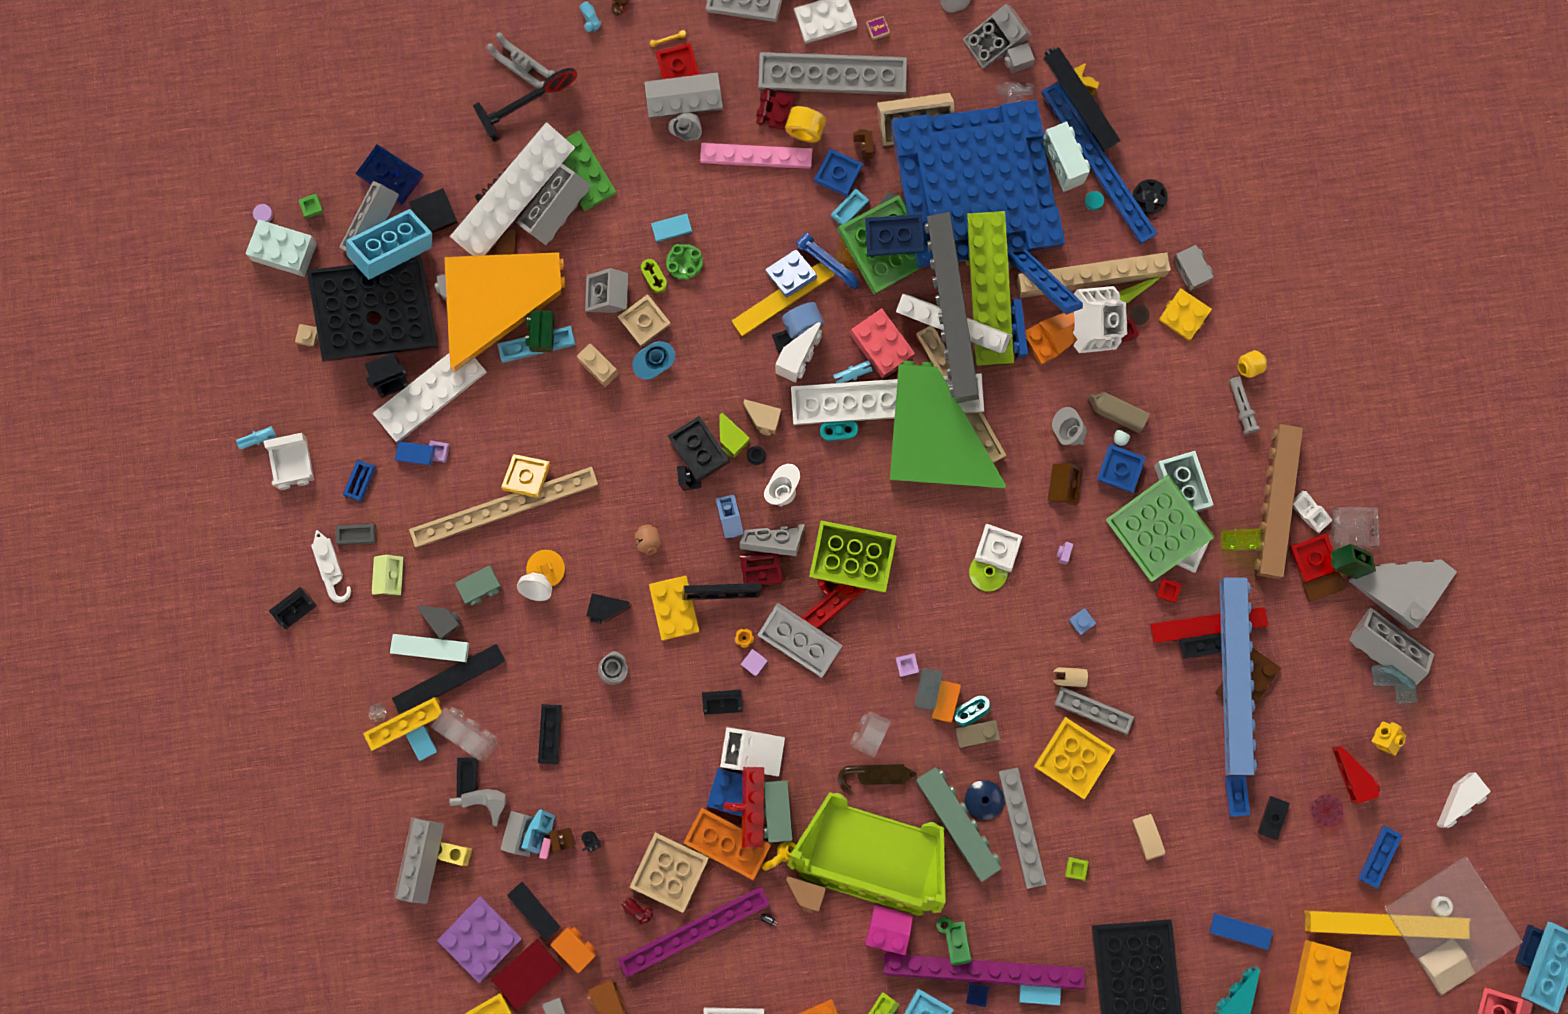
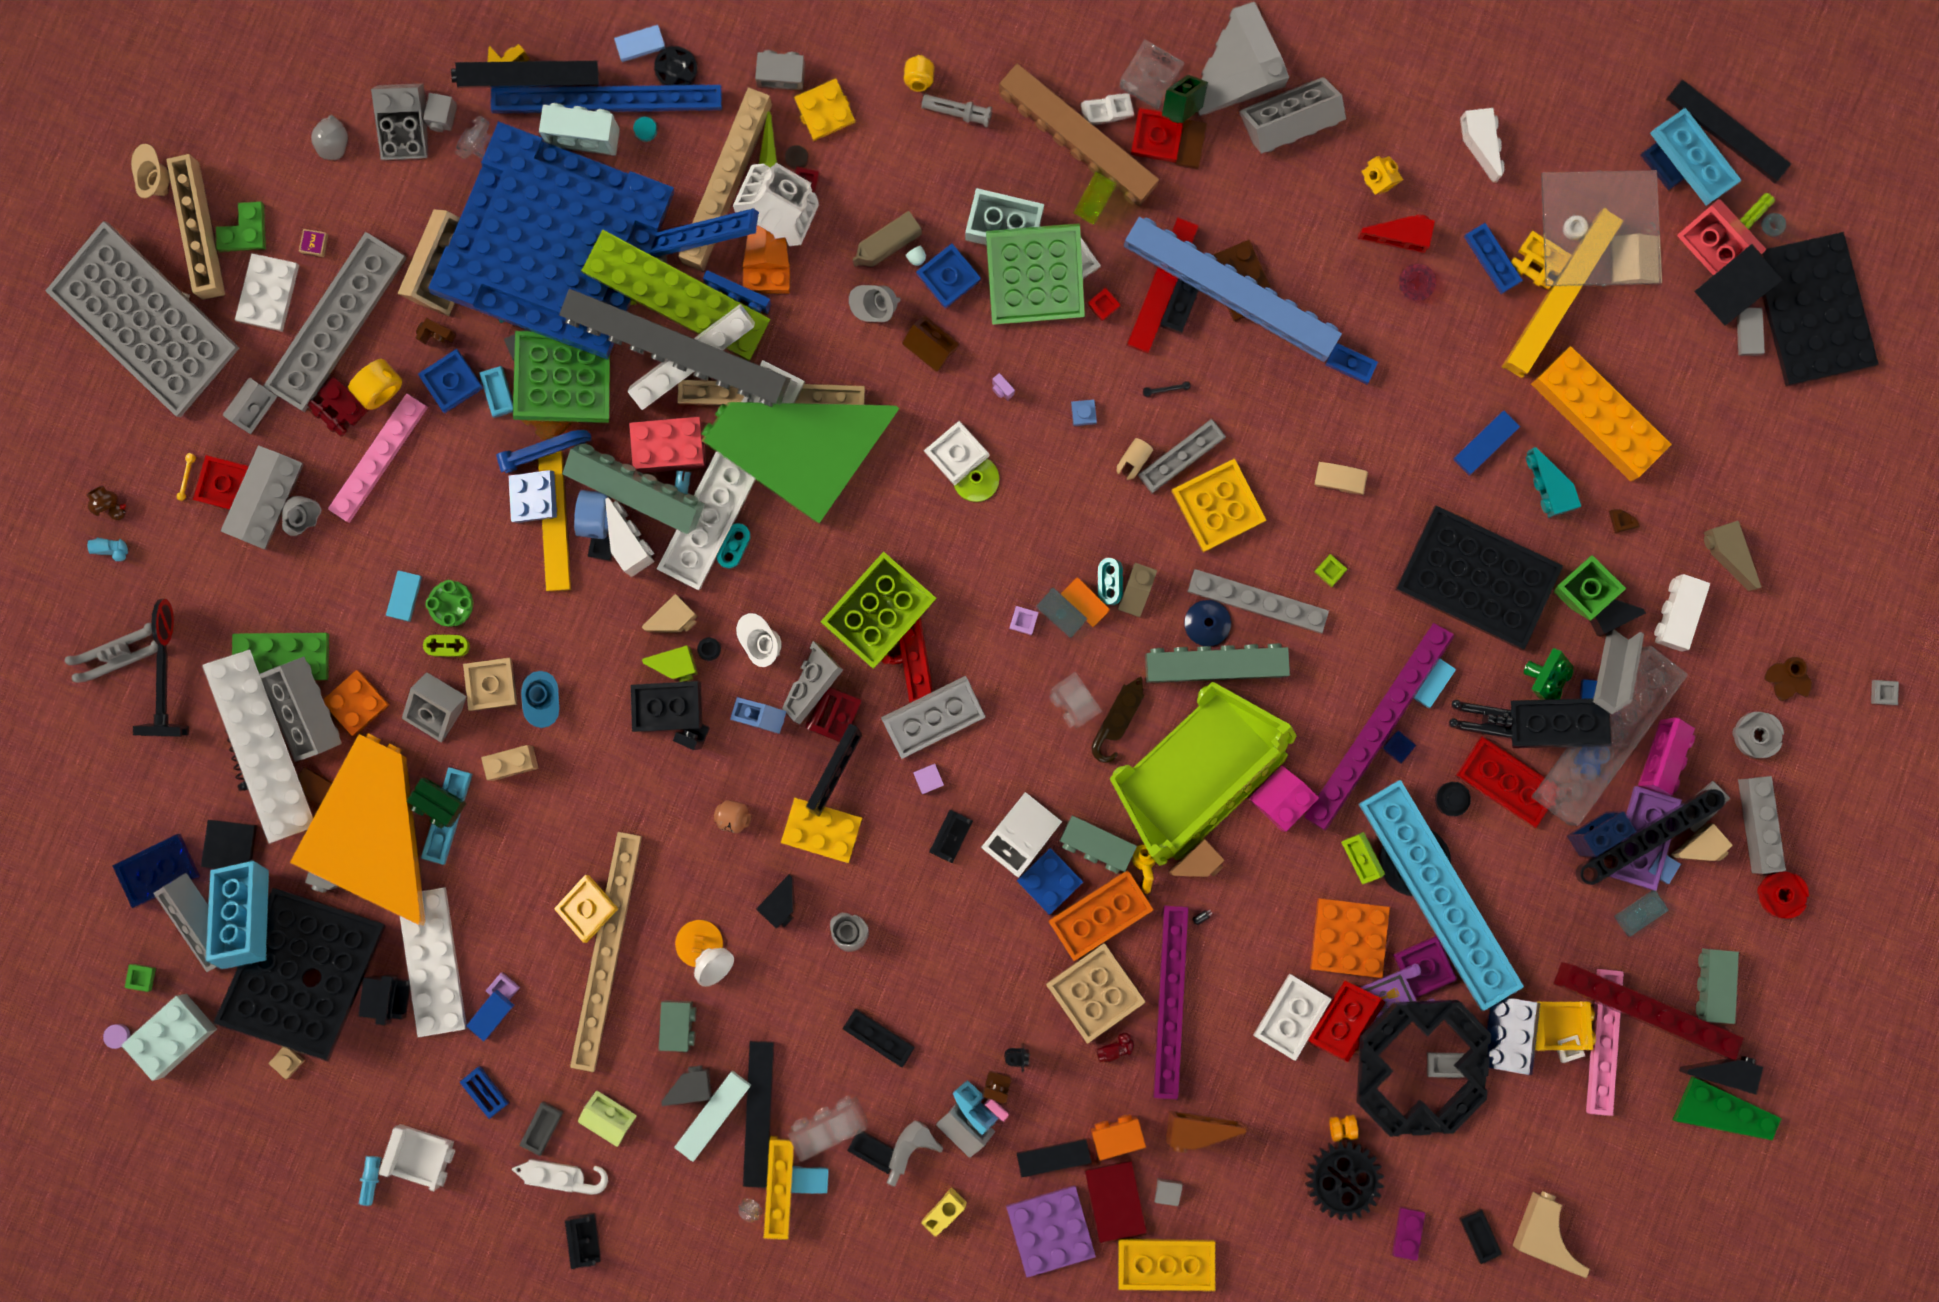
camera: 60 degrees left, 5 degrees up
(419, 860) = (933, 1251): light grey slope -> none
(579, 238) = (355, 703): none -> orange plate
(741, 51) = (249, 405): none -> light grey panel
(749, 638) = (901, 769): light orange plate -> none
(751, 807) = (1078, 868): red plate -> none
(837, 337) = (633, 488): none -> sand green brick
(894, 235) = (558, 361): dark blue plate -> none
(957, 941) = (1334, 735): green hinge -> none
(1125, 659) = (1148, 391): none -> black hinge
(1151, 162) = (639, 43): none -> light blue tile
(1273, 818) = (1393, 340): black plate -> none
(1390, 676) = (1321, 134): clear light blue tile -> none
(1404, 884) = (1533, 251): none -> yellow plate

